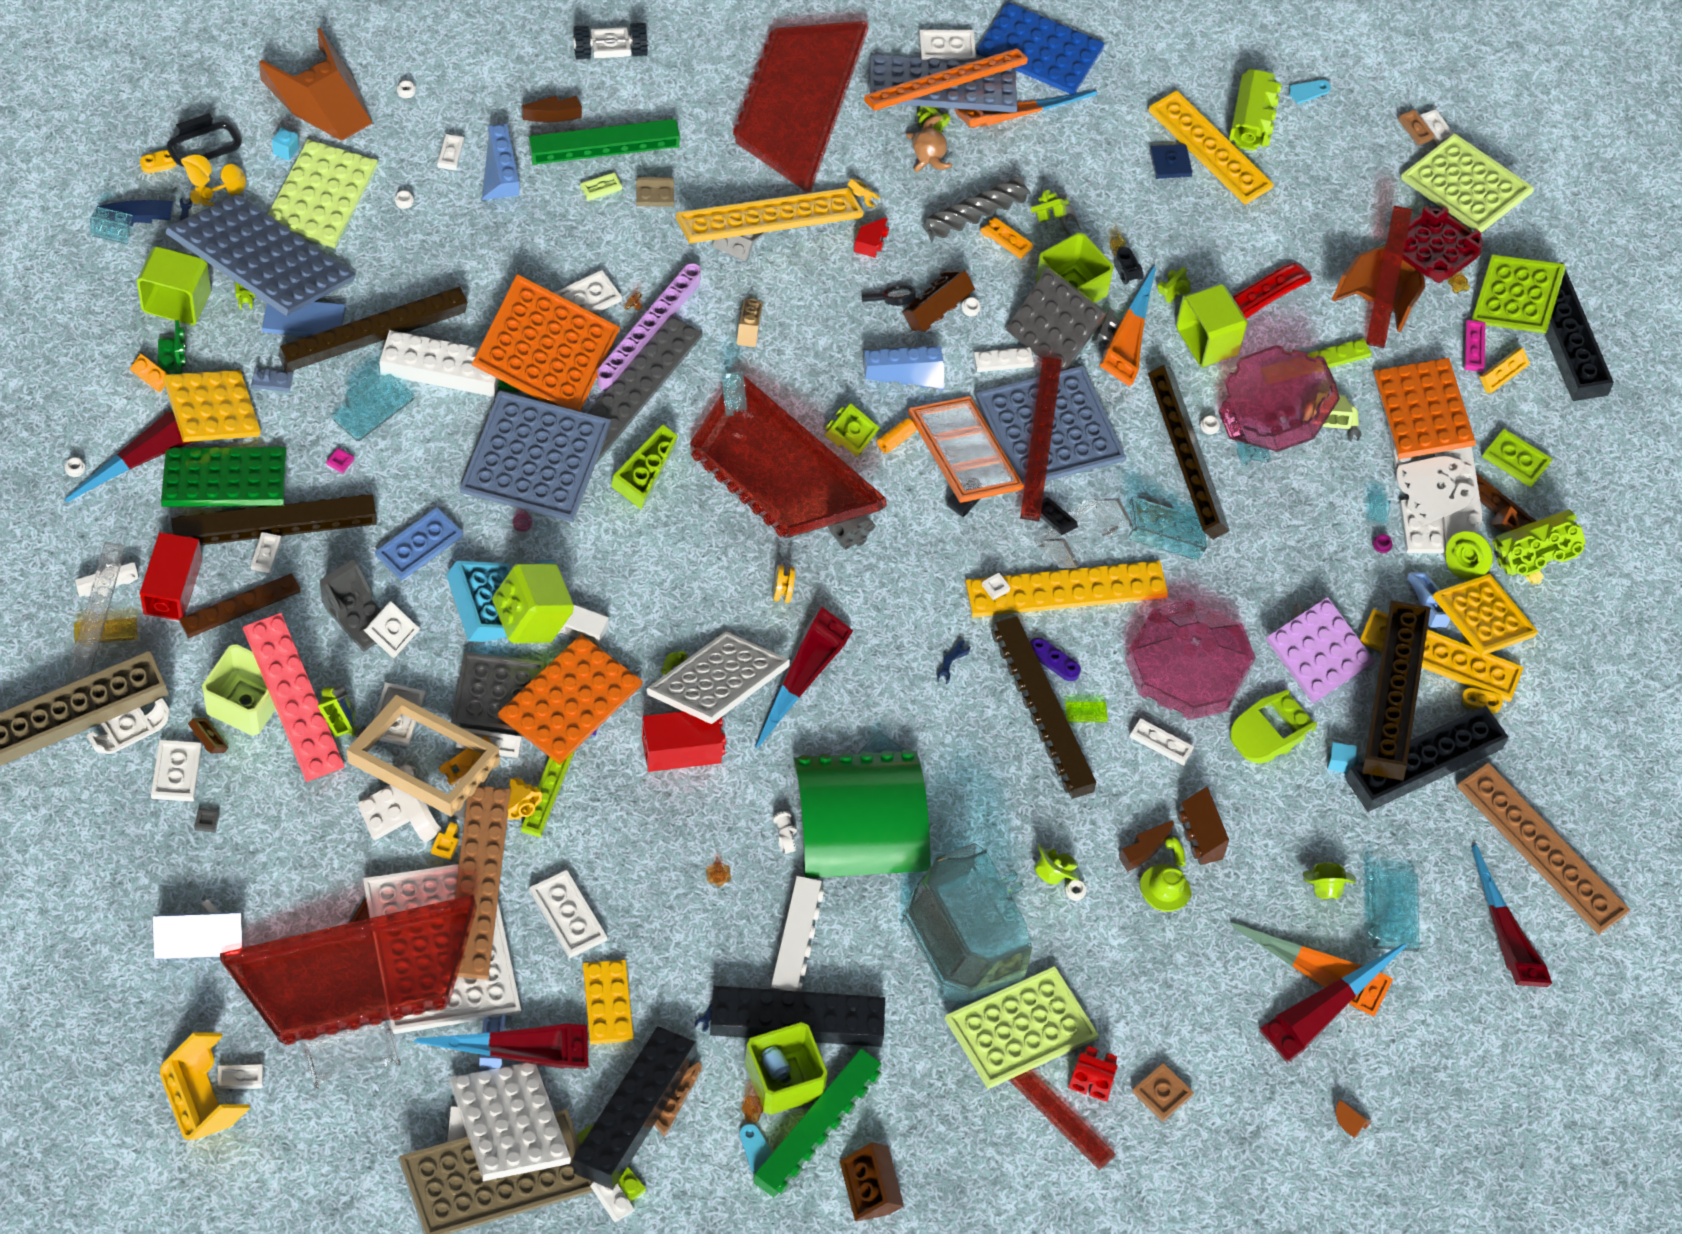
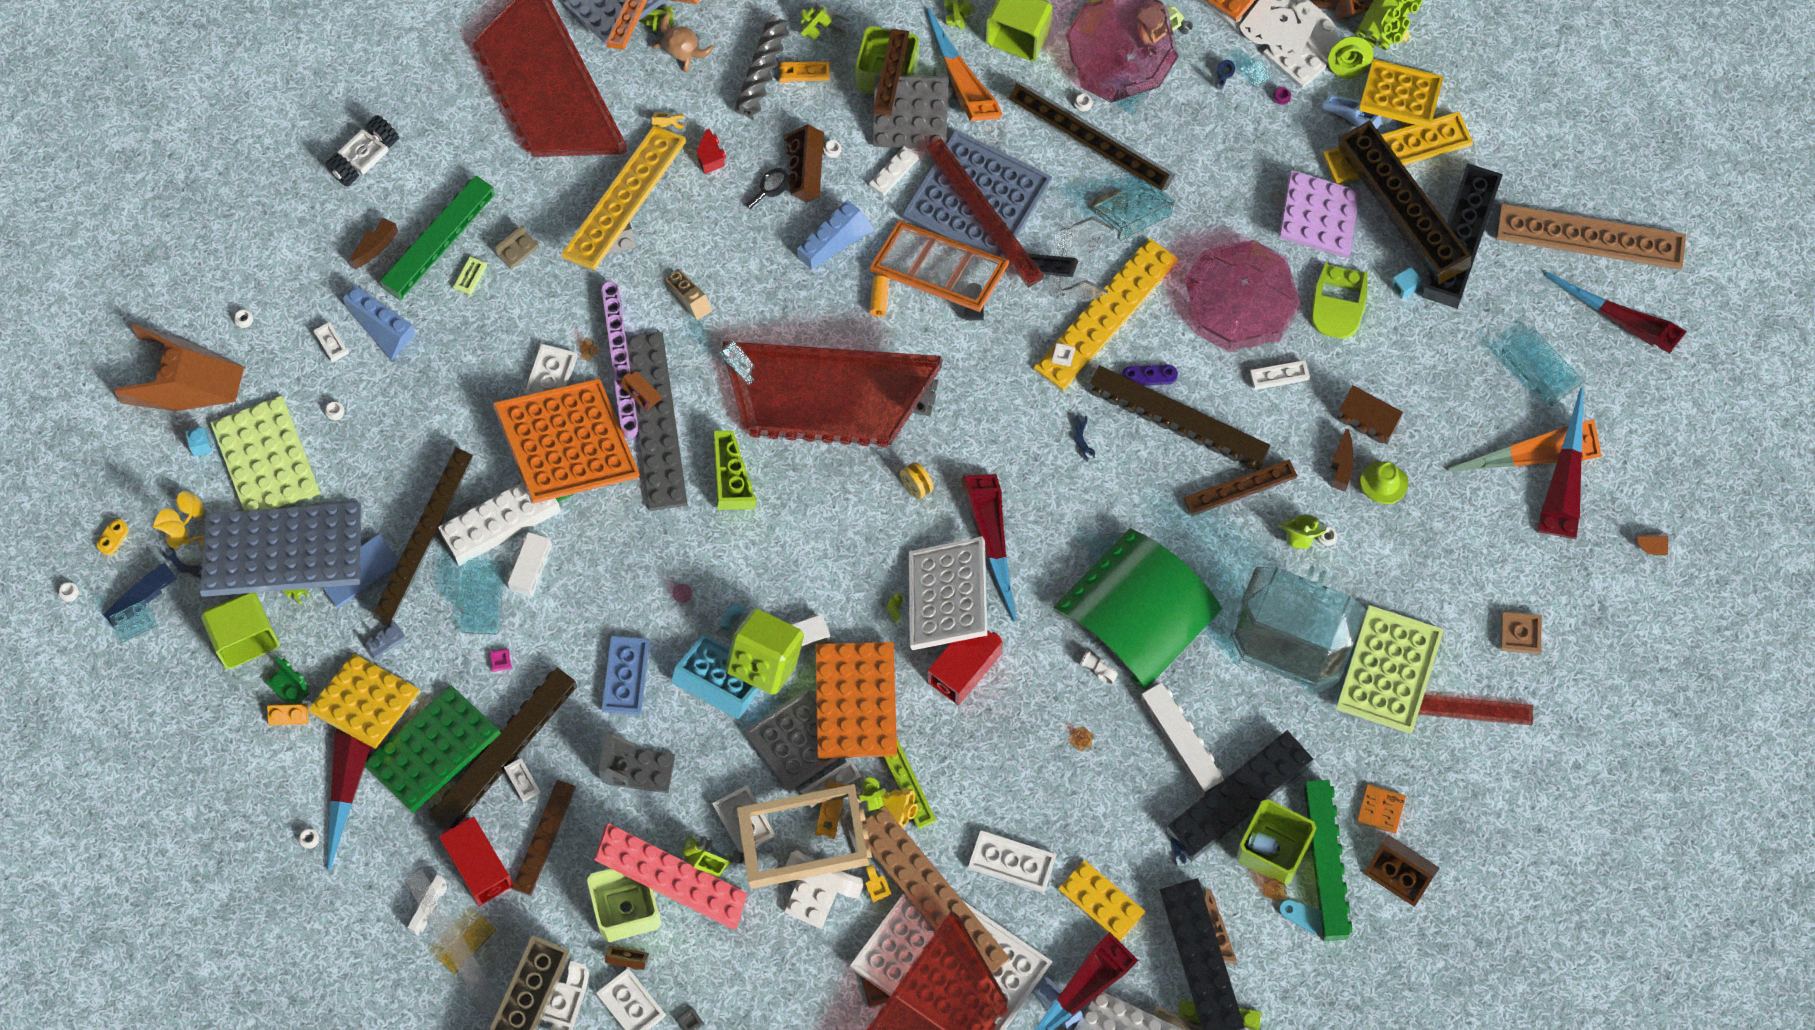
camera: 35 degrees left, 10 degrees up
(89, 172) = (68, 591): none -> white plate
(200, 126) = (117, 486): black bar -> none
(391, 629) = (675, 759): white tile -> none
(430, 411) = (529, 564): none -> white brick
(506, 773) = (872, 794): none -> lime hips
(535, 456) = (643, 534): sand blue plate -> none
(639, 355) = (640, 390): none -> dark orange panel
(851, 429) = (844, 318): lime plate -> none
(905, 1125) = (1381, 809): none -> orange tile
(1041, 797) = (1240, 487): none -> reddish brown plate
(1061, 273) = (891, 72): none -> reddish brown plate
(1086, 712) = (1208, 396): clear neon green tile -> none
(1095, 1072) = (1471, 662): red hips -> none
(1117, 243) = (887, 12): clear yellow plate -> none
(1127, 265) = (912, 23): black piece -> none
(1179, 851) = (1366, 447): lime arm -> none
(1328, 879) = (1484, 382): lime hat -> none
(1352, 483) = (1224, 76): none -> dark blue plate
(1482, 698) = (1453, 160): yellow plate -> none

